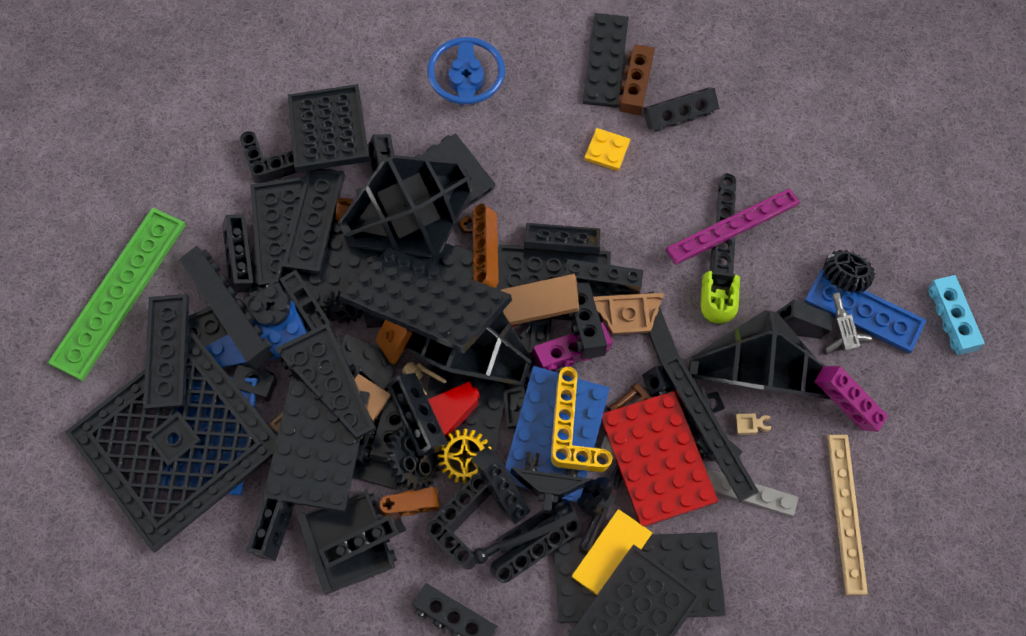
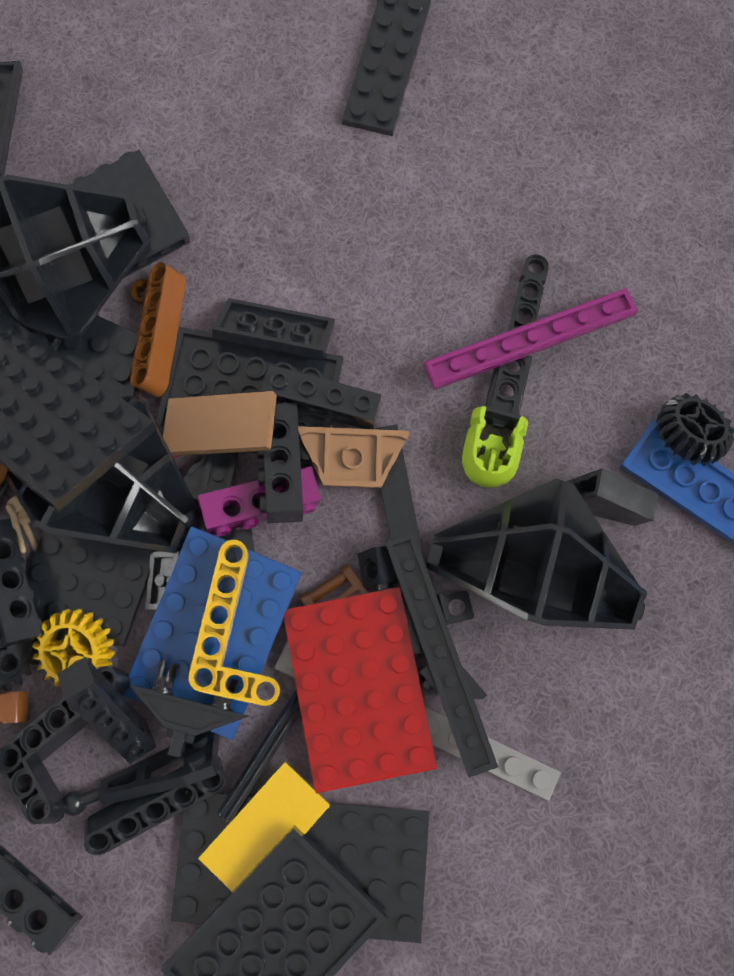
camera: 10 degrees right, 10 degrees up
(380, 148) = (32, 159): black brick -> none
(454, 406) = (65, 575): red slope -> none
(466, 66) = (176, 50): blue piece -> none
(597, 496) = (247, 748): black plate -> none
(607, 149) = (366, 198): yellow plate -> none
(643, 56) = (437, 59): reddish brown brick -> none
(654, 112) = (526, 145): black brick -> none
(748, 424) = (503, 648): tan plate -> none
(845, 328) = (675, 519): flat silver piece -> none
(847, 515) = (630, 810): tan tile -> none
(851, 398) = (664, 635): magenta brick -> none

